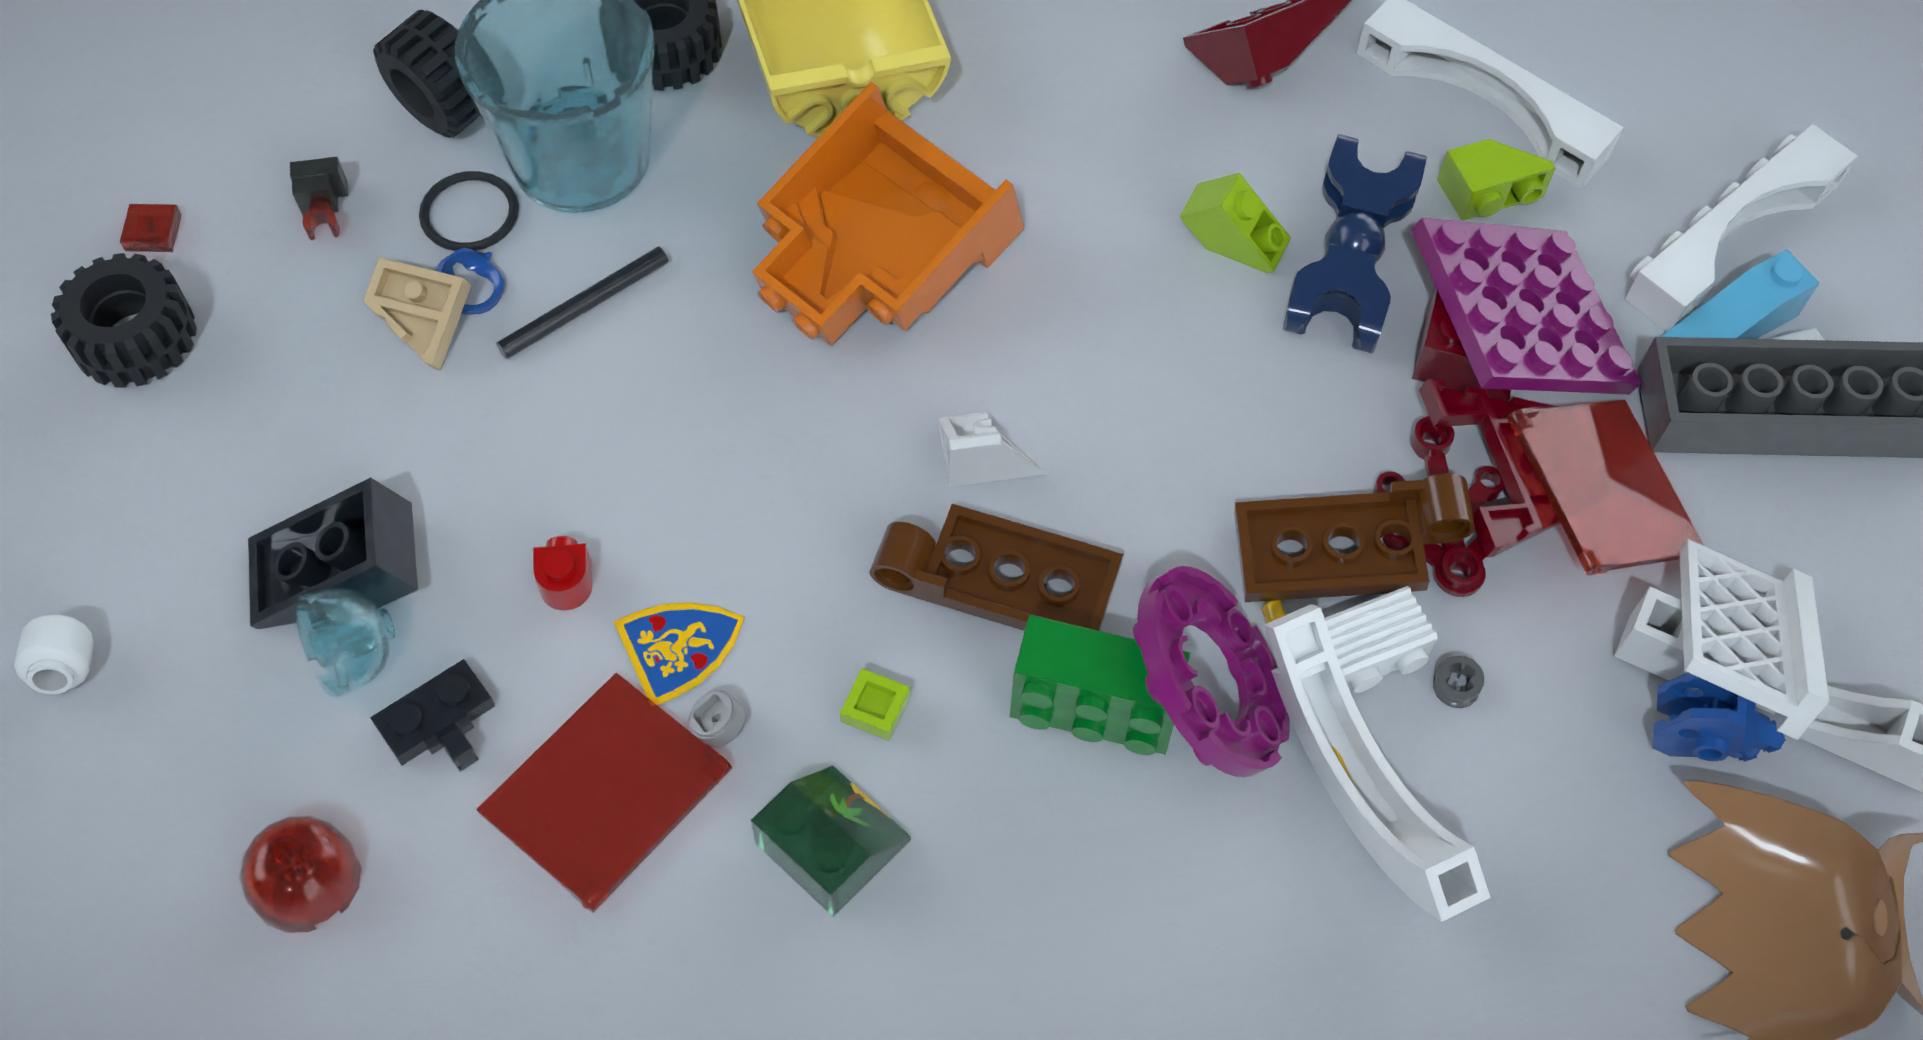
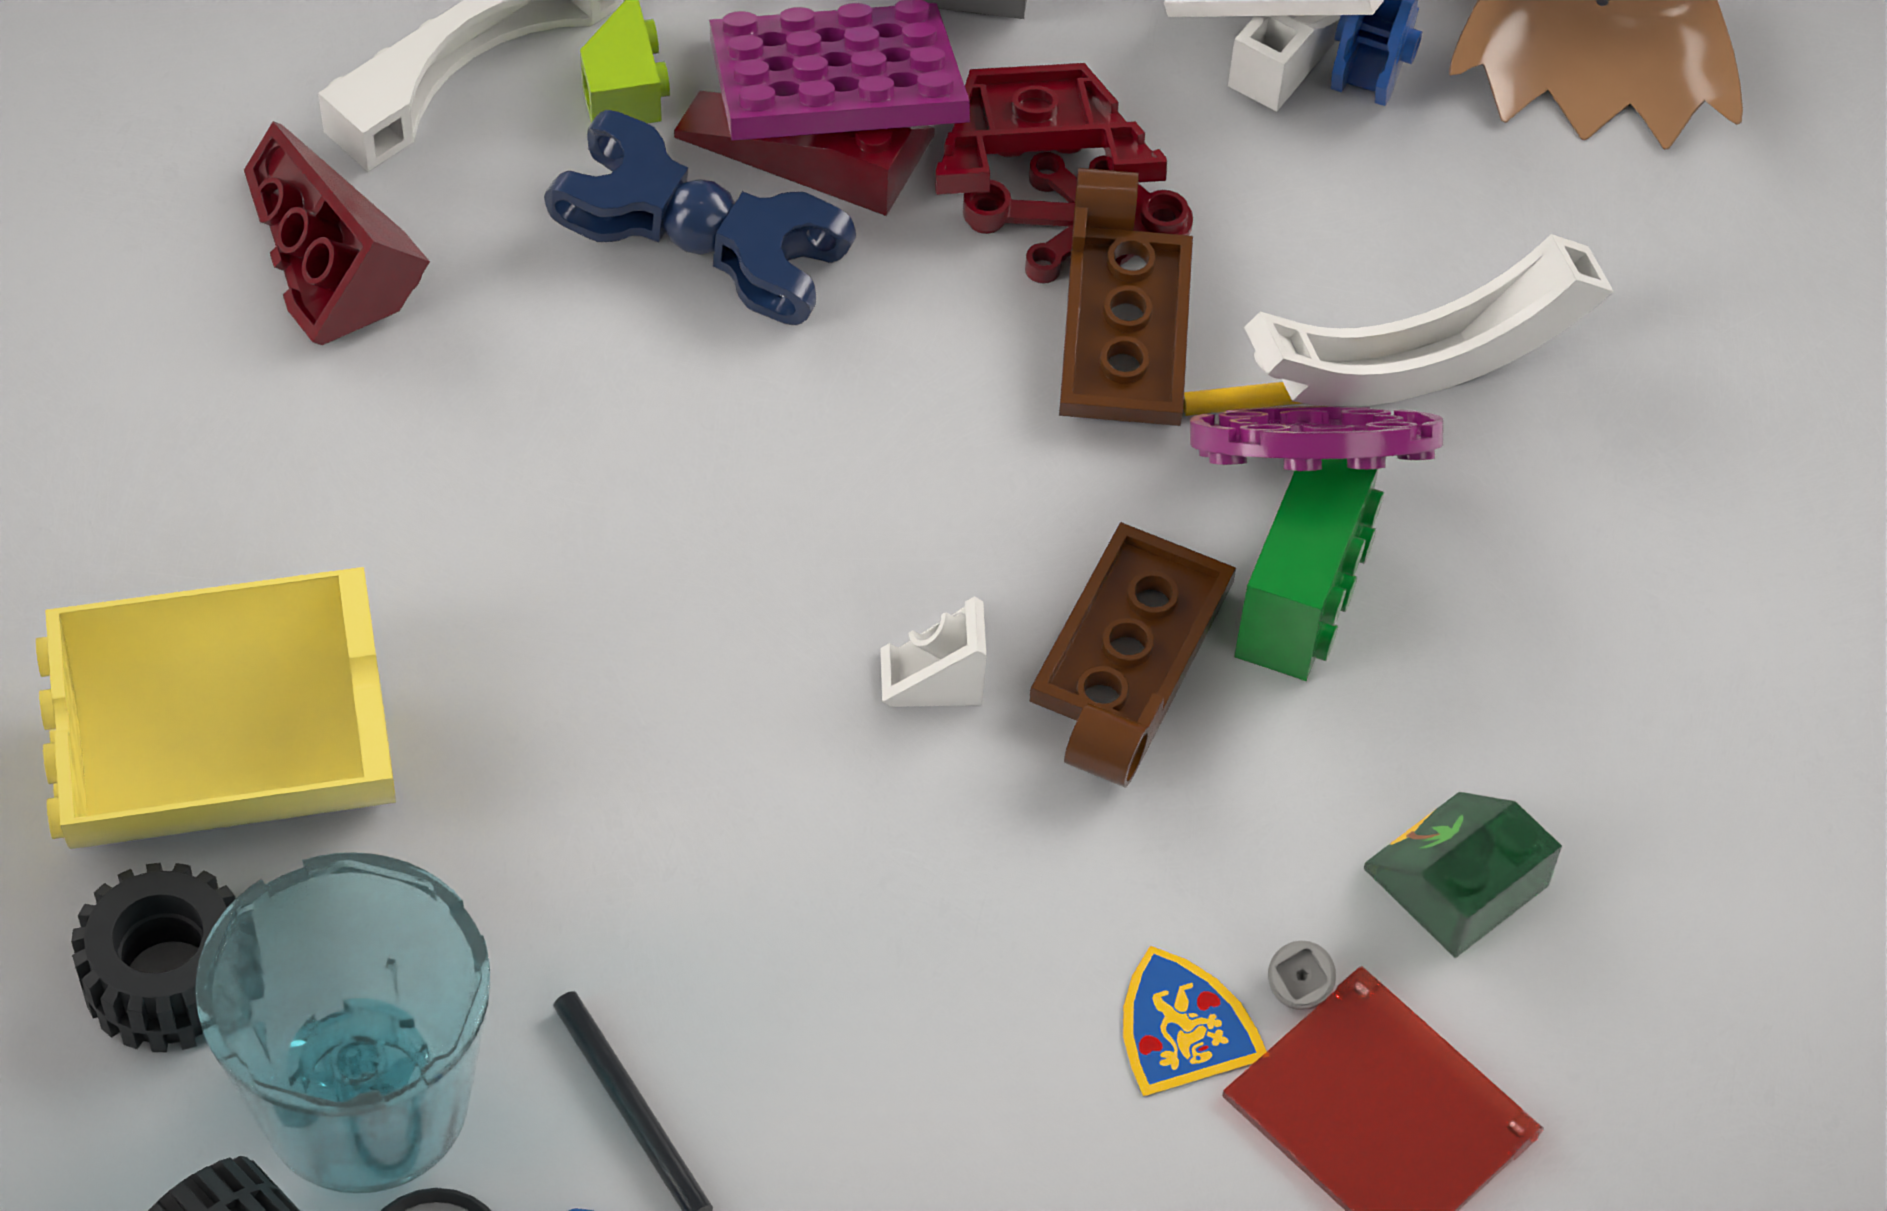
camera: 85 degrees left, 5 degrees down
(563, 572) = (1082, 1138): red plate -> none
(875, 704) = (1294, 803): lime plate -> none
(876, 224) = (594, 710): orange panel -> none
(1235, 223) = (644, 333): lime slope -> none
(1381, 638) = (1234, 290): white brick -> none
(1466, 667) = (1305, 237): dark grey bush -> none
(1604, 484) = (1075, 61): clear red piece -> none

